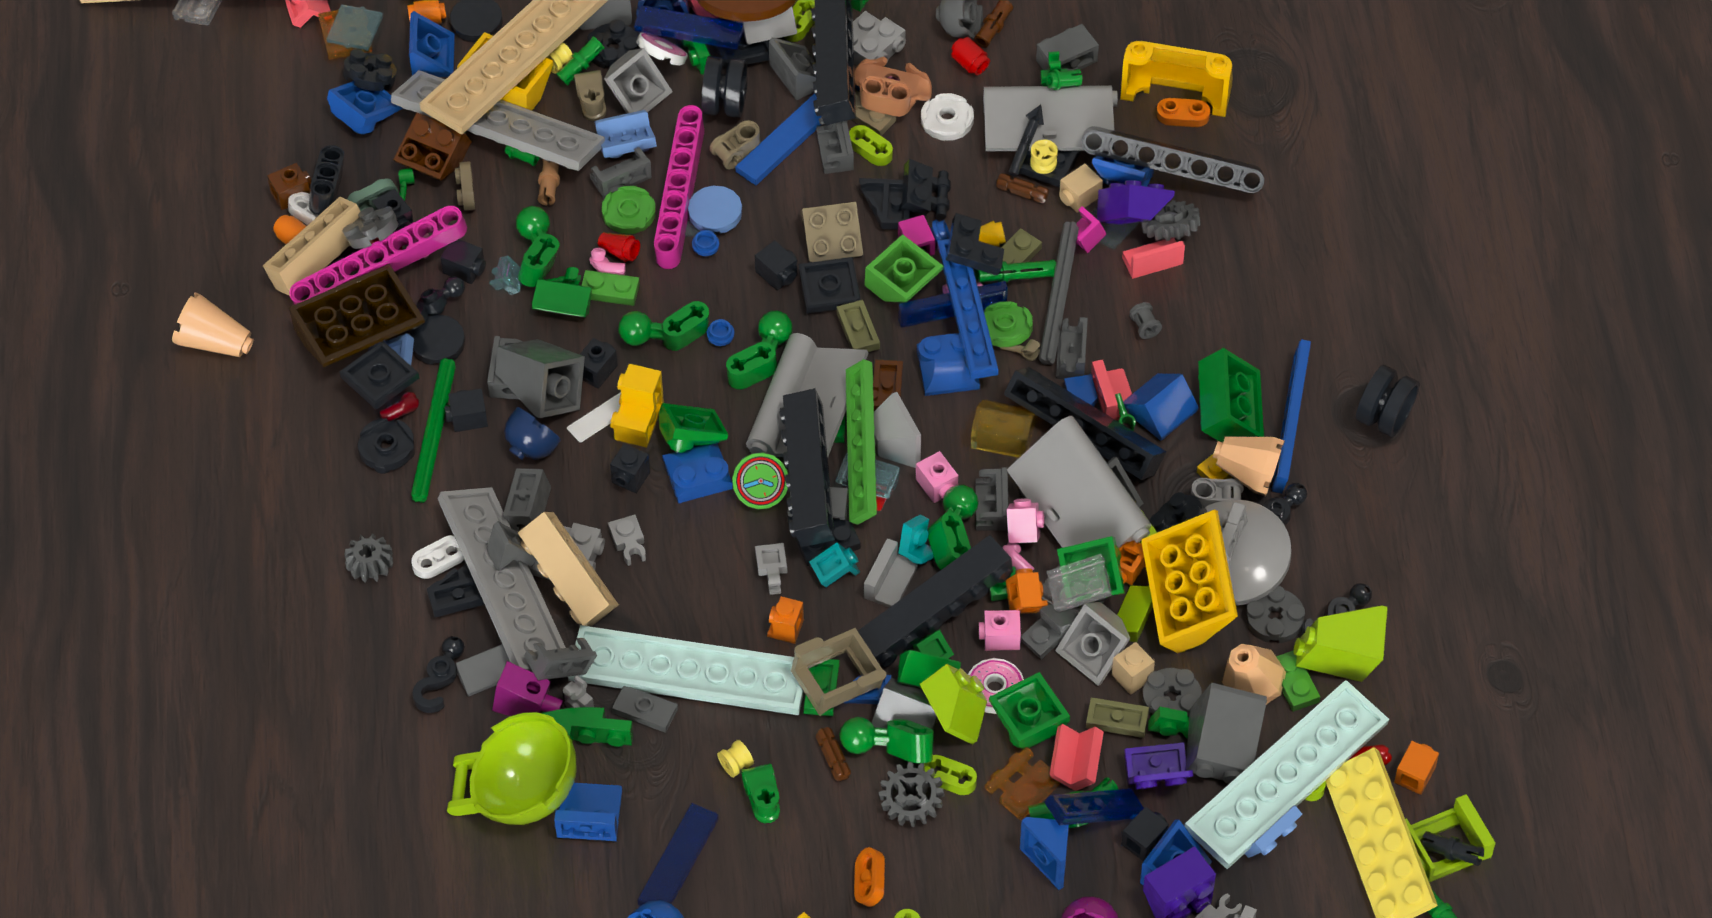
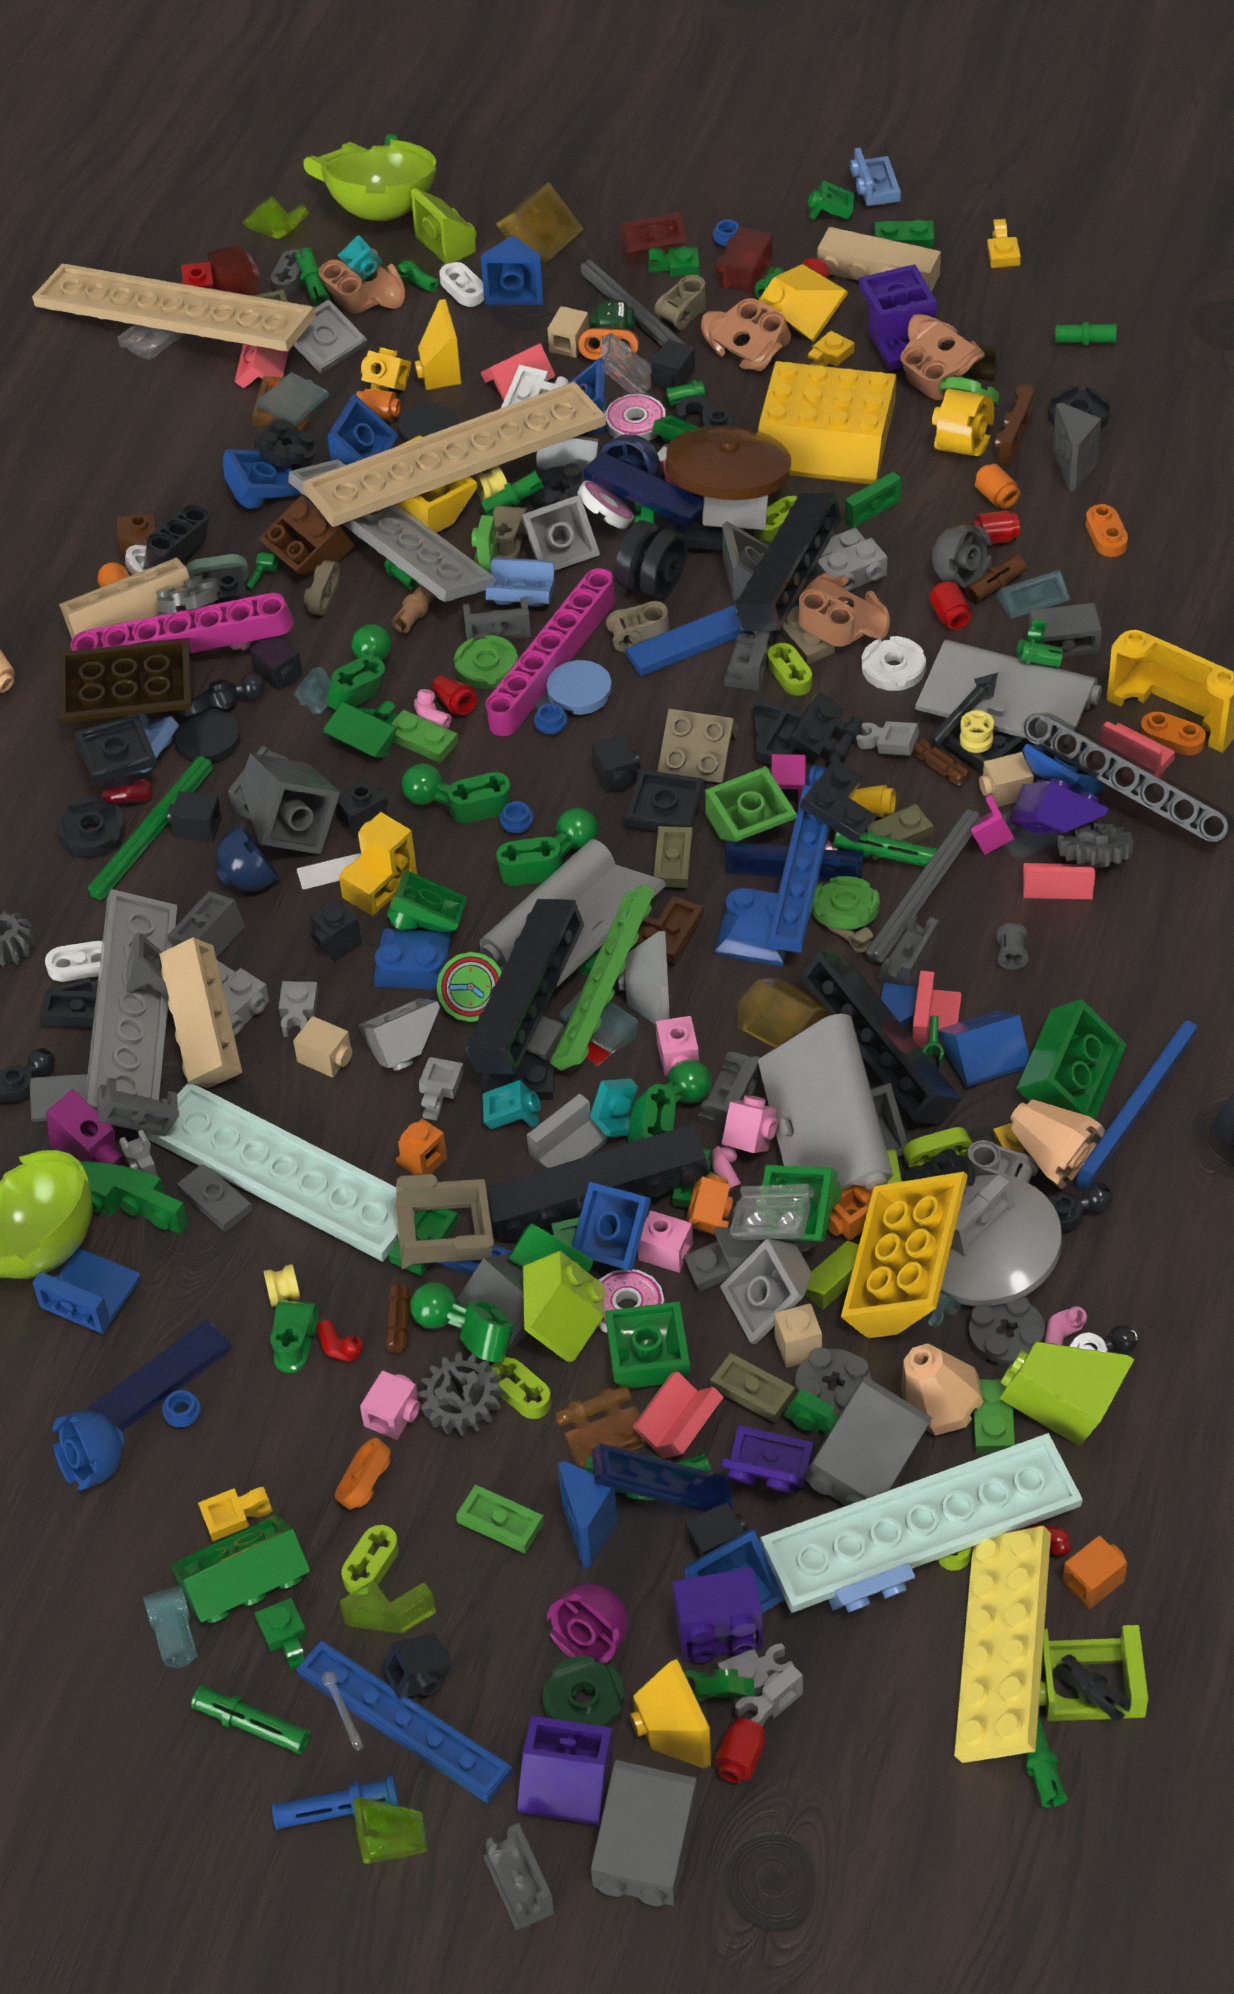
camera: 25 degrees right, 5 degrees down
(586, 111) = (485, 540): none -> bright green plate
(669, 564) = (323, 1046): none -> tan brick
(705, 869) = (181, 1400): none -> blue plate
(722, 532) = (400, 1032): none -> light grey slope
(798, 791) = (335, 1347): none -> red arm
(864, 819) = (390, 1404): none -> bright pink brick
(965, 631) = (611, 1225): none -> blue slope
(978, 180) = (893, 738): none -> light grey plate
(985, 875) = (500, 1519): none -> bright green plate
(1027, 28) = (1033, 594): none -> clear light blue slope
(1161, 494) = (929, 1146): none -> lime beam
(1163, 131) = (1137, 746): none -> coral panel
(1312, 597) = (1064, 1324): none -> bright pink arm

